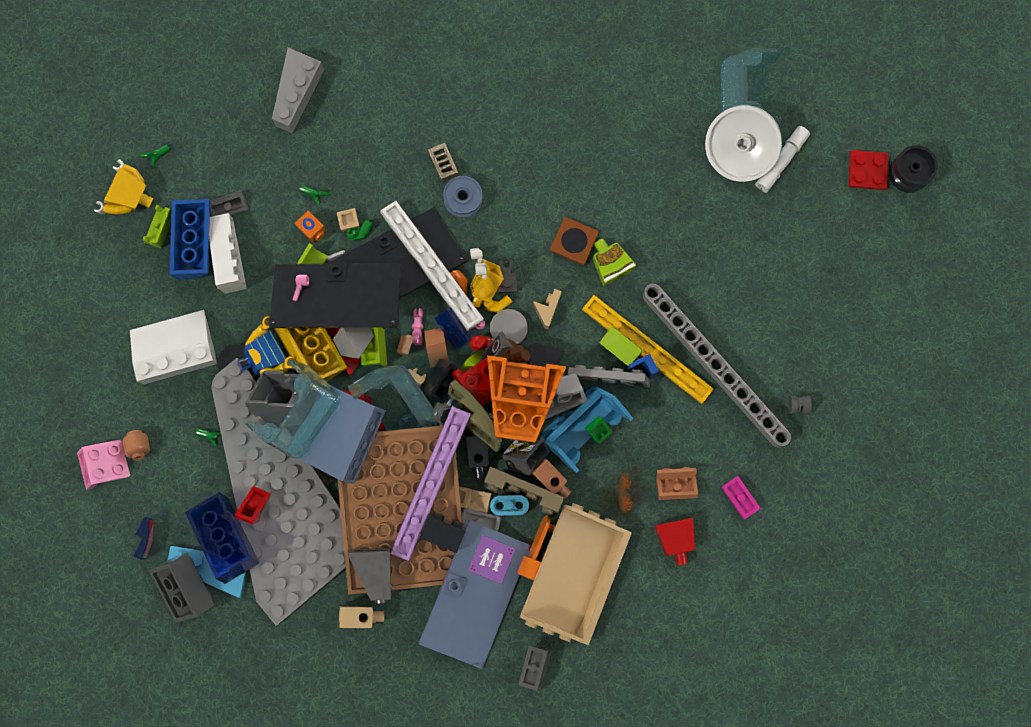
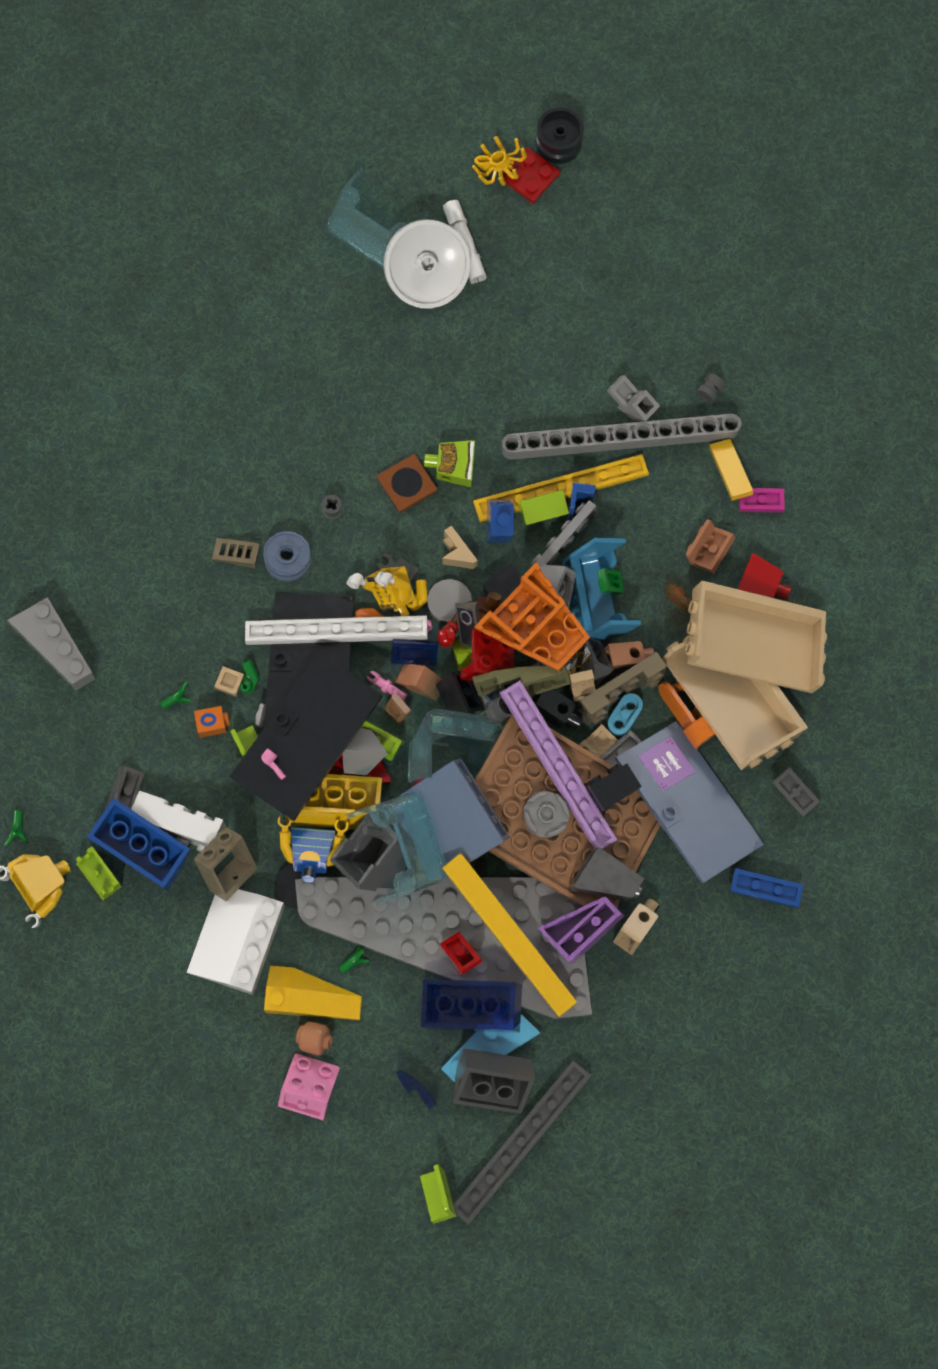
camera: 60 degrees left, 5 degrees down
(79, 603) = (438, 1195): none -> lime panel
(154, 635) = (520, 1142): none -> dark grey plate
(162, 417) = (301, 994): none -> yellow wedge
(201, 312) = (241, 866): none -> dark tan window
(286, 530) = (509, 935): none -> yellow tile
(324, 578) = (581, 929): none -> medium lavender wedge
(390, 498) = (545, 814): none -> light grey tile
(447, 692) = (766, 888): none -> blue plate
(504, 461) = (582, 684): none -> tan slope
(515, 198) = (332, 500): none -> dark grey bush
(590, 321) = (500, 521): none -> blue torso
(628, 563) = (756, 637): none -> tan panel
(747, 354) = (633, 403): none -> light grey brick
(747, 460) = (731, 469): none -> yellow tile
(859, 140) = (499, 162): none -> yellow animal

